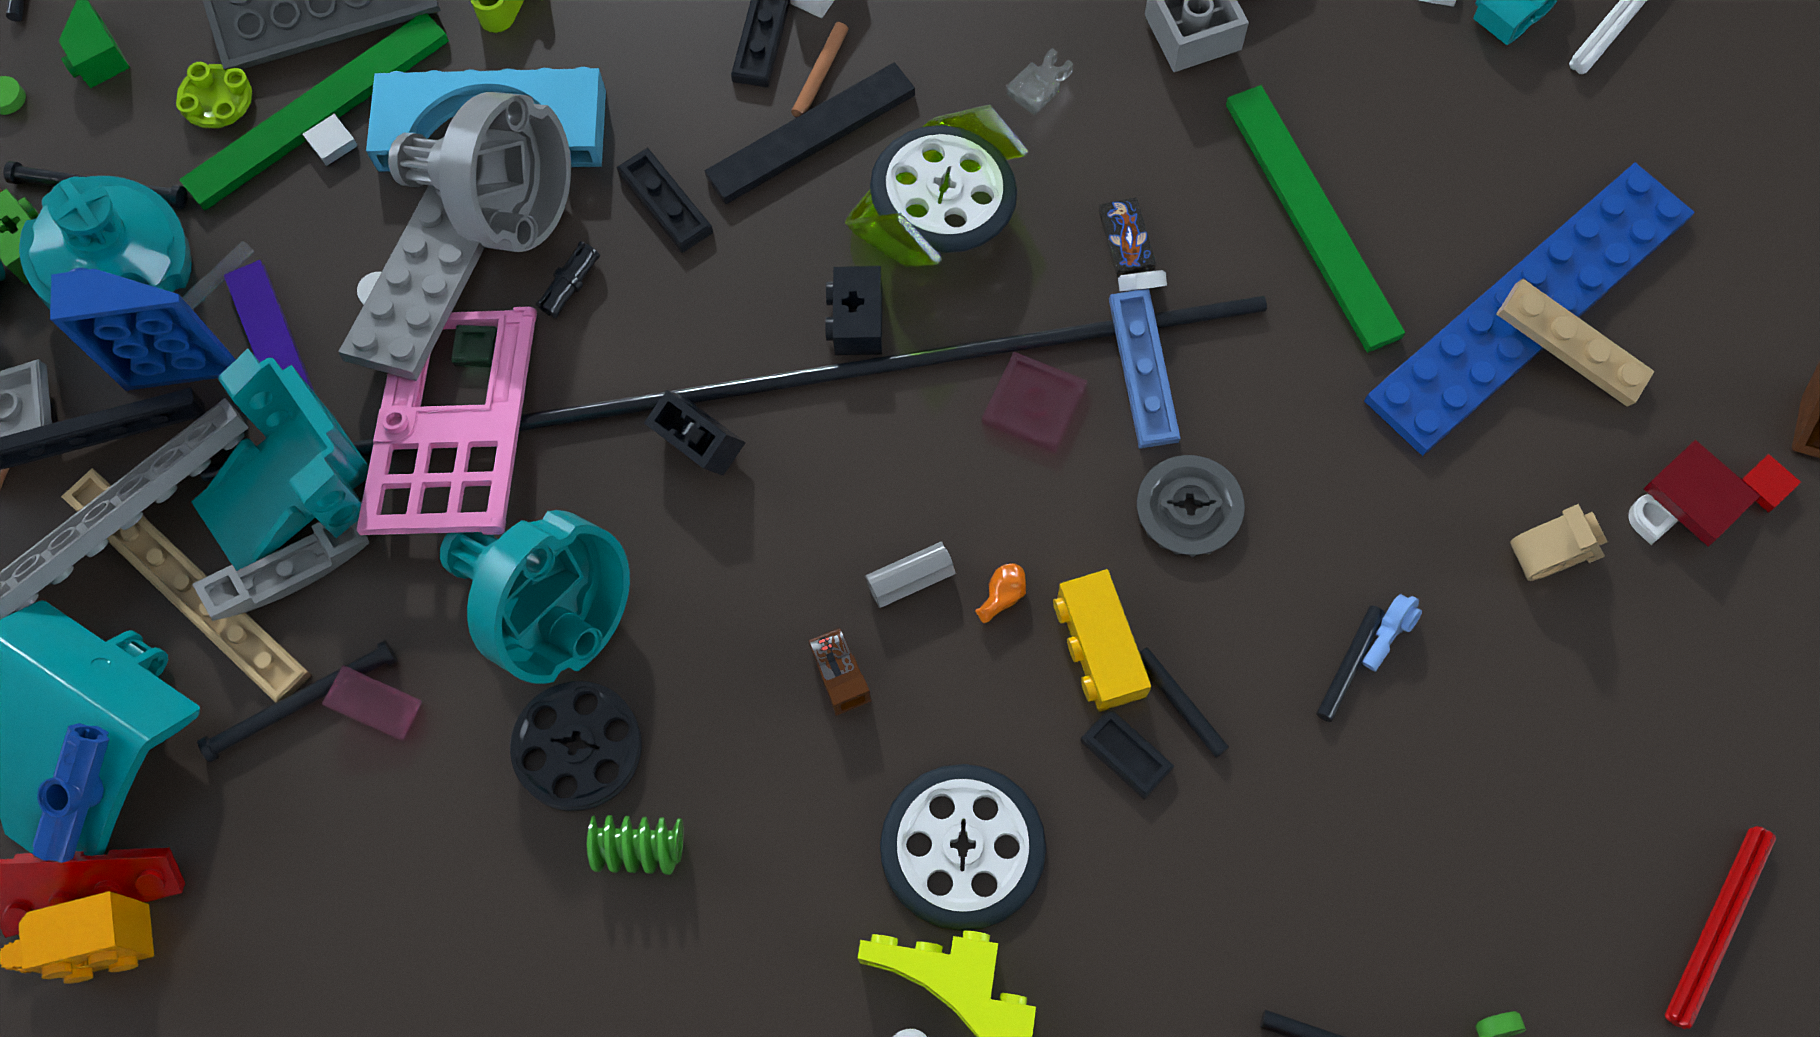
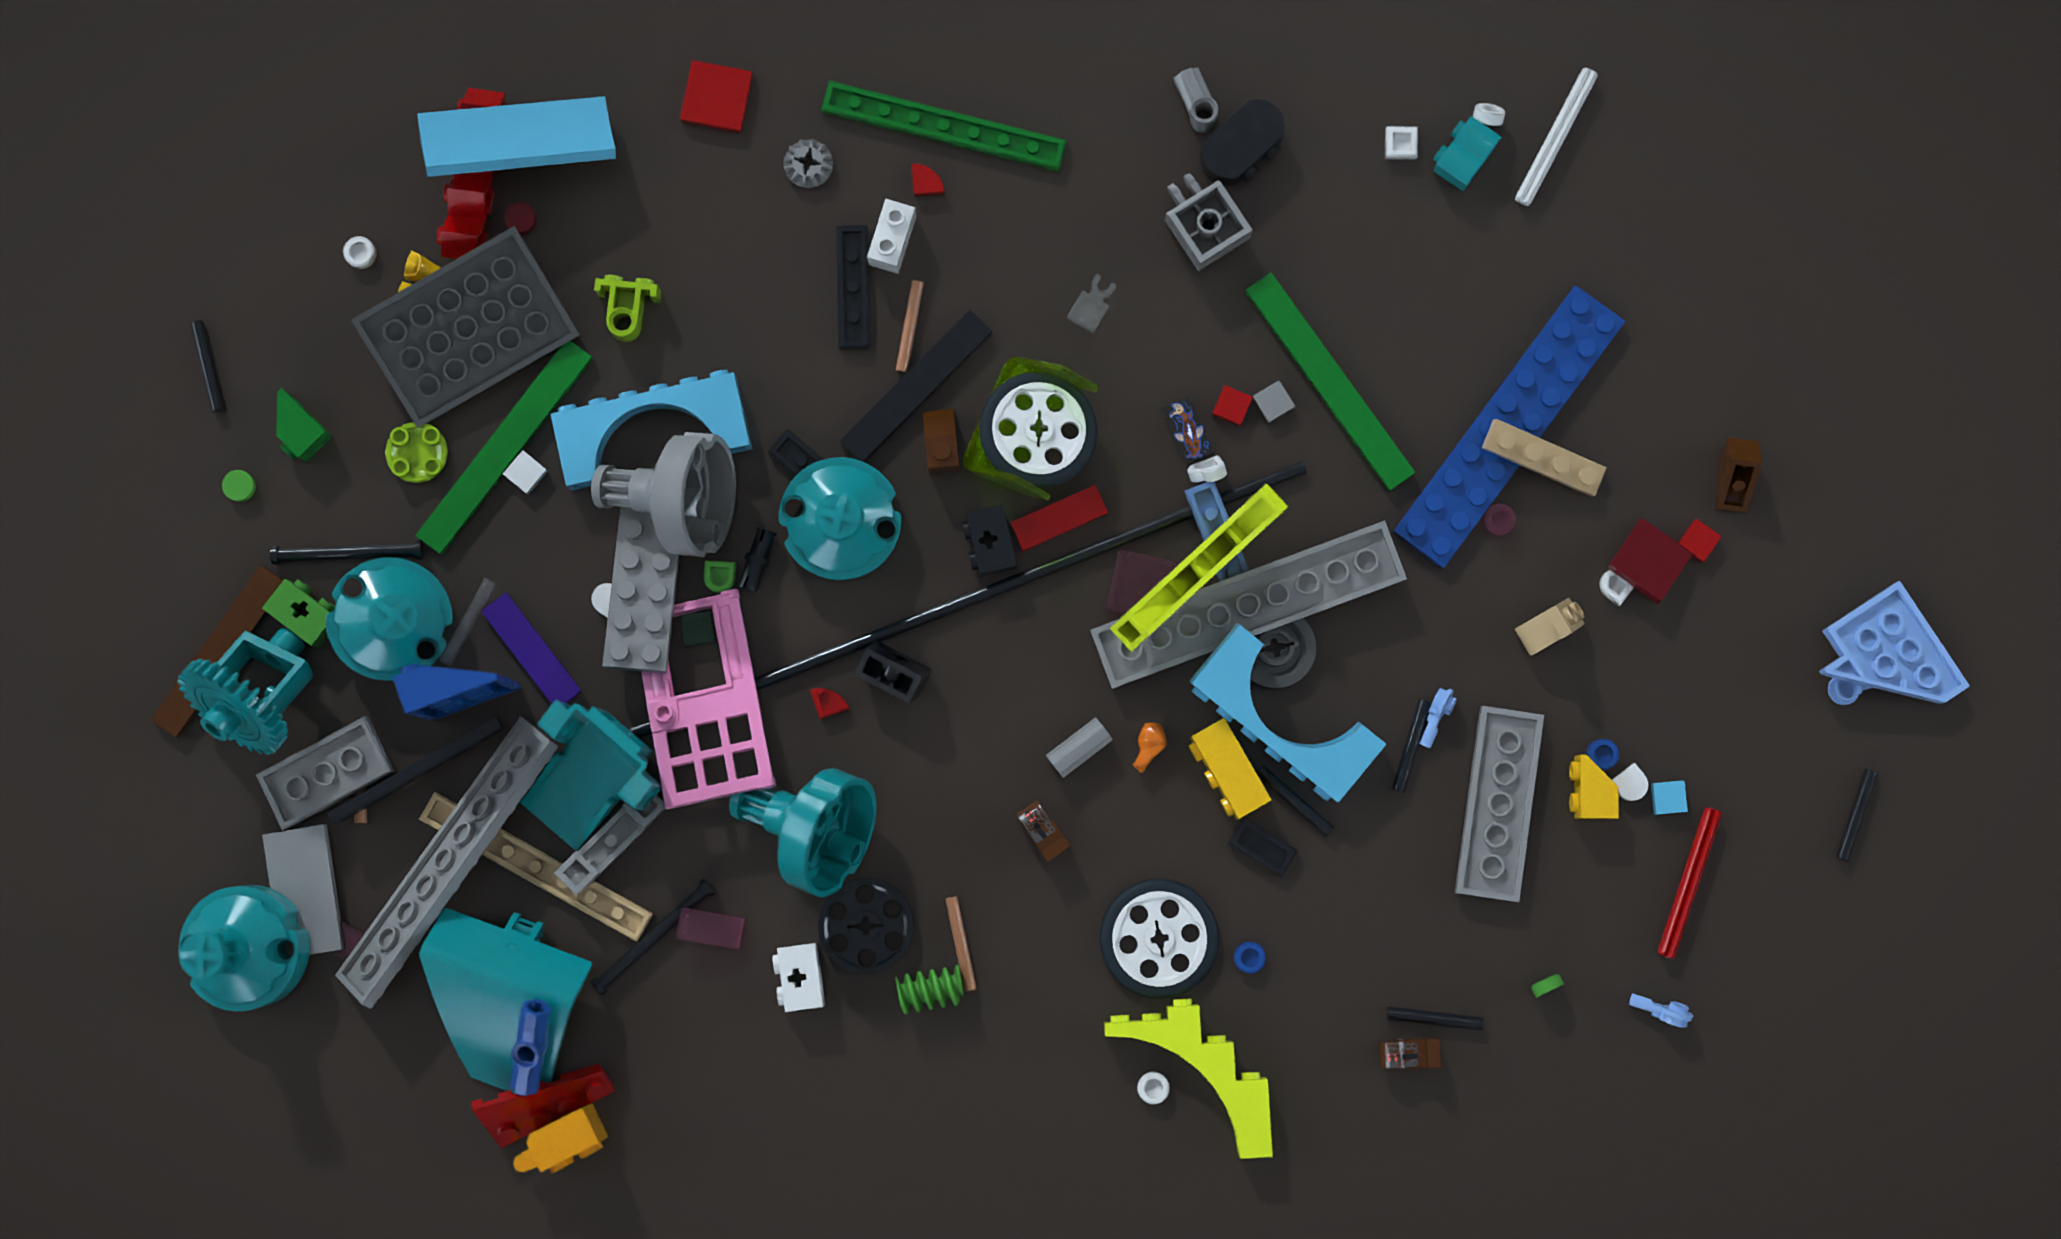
camera: 15 degrees left, 15 degrees up
(479, 810) = (811, 991): none -> white brick
(520, 290) = (720, 575): none -> bright green tile
(607, 461) = (828, 702): none -> red tile
(678, 248) = (840, 518): none -> teal piece
(694, 796) = (960, 943): none -> nougat bar
(823, 196) = (941, 441): none -> reddish brown slope
(947, 304) = (1059, 518): none -> red tile
(1081, 898) = (1249, 957): none -> blue tile
(1100, 380) = (1198, 567): none -> neon yellow arch
(1166, 441) = (1258, 602): none -> light grey plate
(1187, 220) = (1232, 405): none -> red tile
(1231, 659) = (1329, 765): none -> medium azure arch
(1239, 225) = (1273, 402): none -> light grey tile
(1461, 764) = (1499, 804): none -> light grey plate
(1506, 408) = (1499, 519): none -> clear pink plate
(1597, 769) = (1594, 792): none -> yellow slope
(1612, 727) = (1603, 753): none -> blue tile
(1647, 773) = (1631, 783): none -> white tile
(1700, 802) = (1669, 797): none -> medium azure tile

